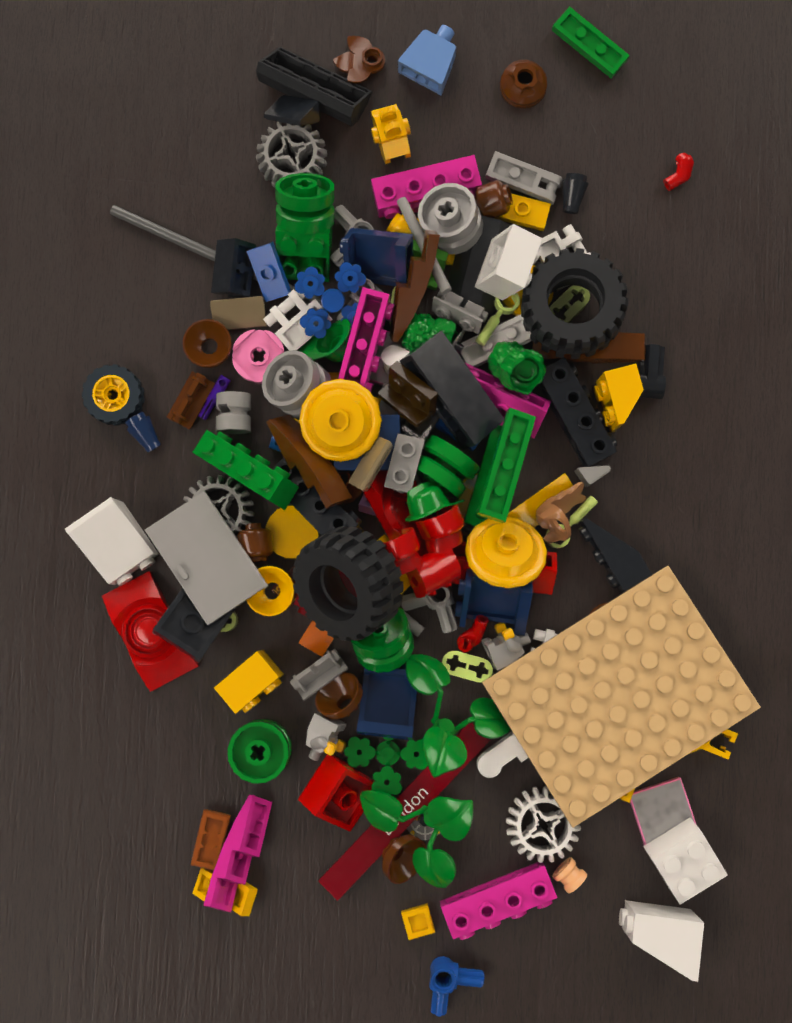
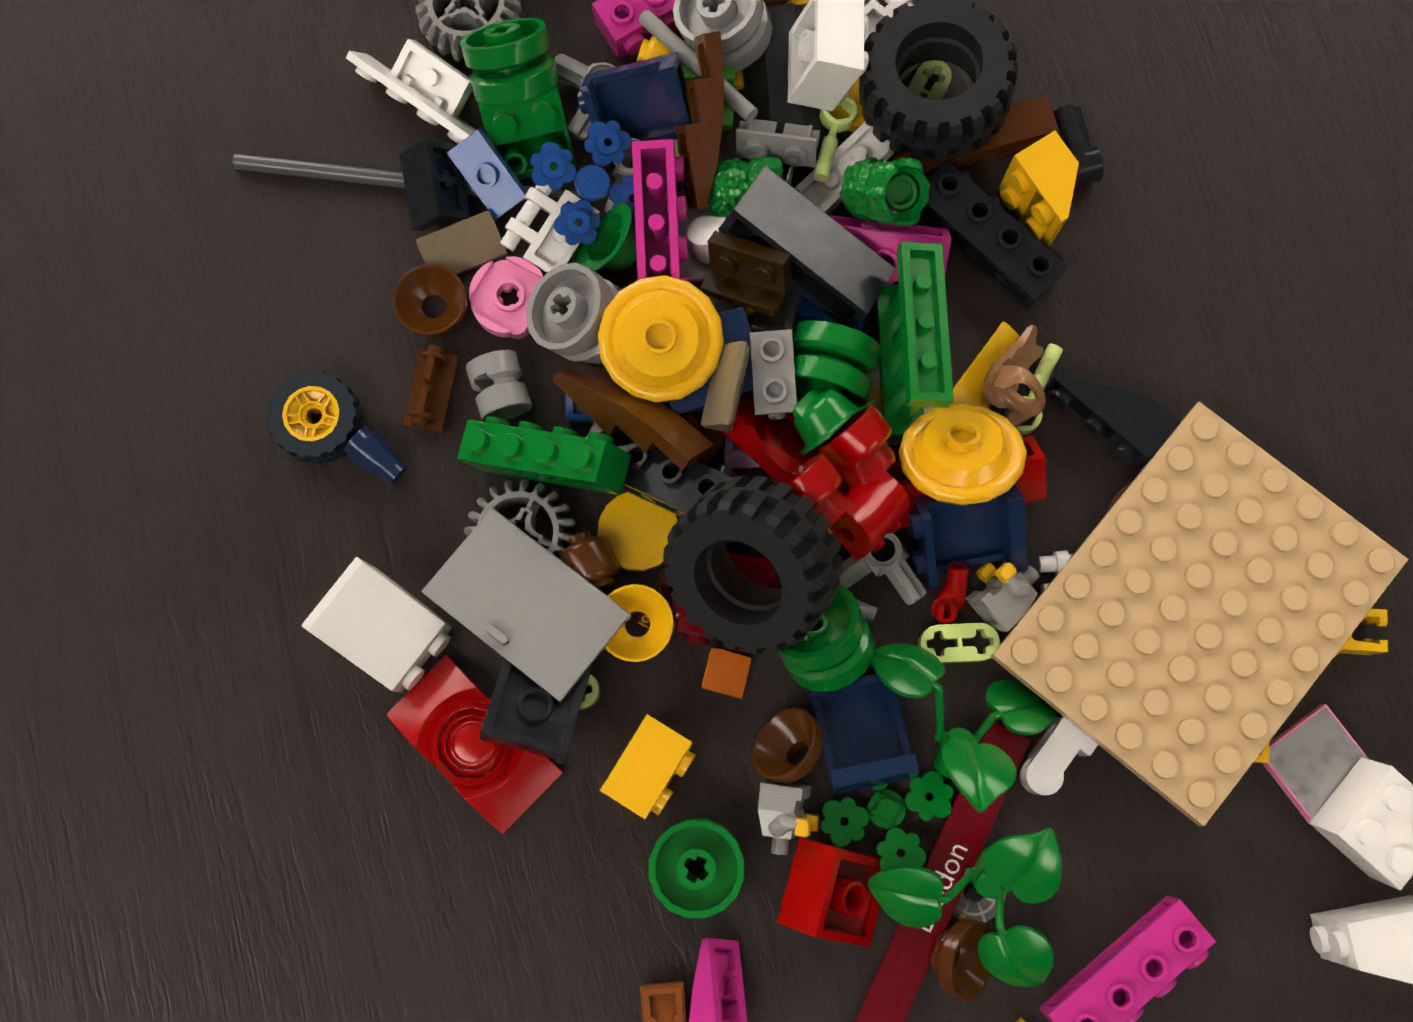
camera: 20 degrees left, 5 degrees down
(220, 386) = (468, 351): dark purple piece -> none
(247, 197) = (424, 82): none -> white bracket
(319, 674) = (746, 724): light grey hinge -> none
(556, 845) = (1182, 860): white gear -> none
(569, 875) = (1218, 902): light nougat wheel -> none
(589, 475) = (1040, 311): light grey slope -> none

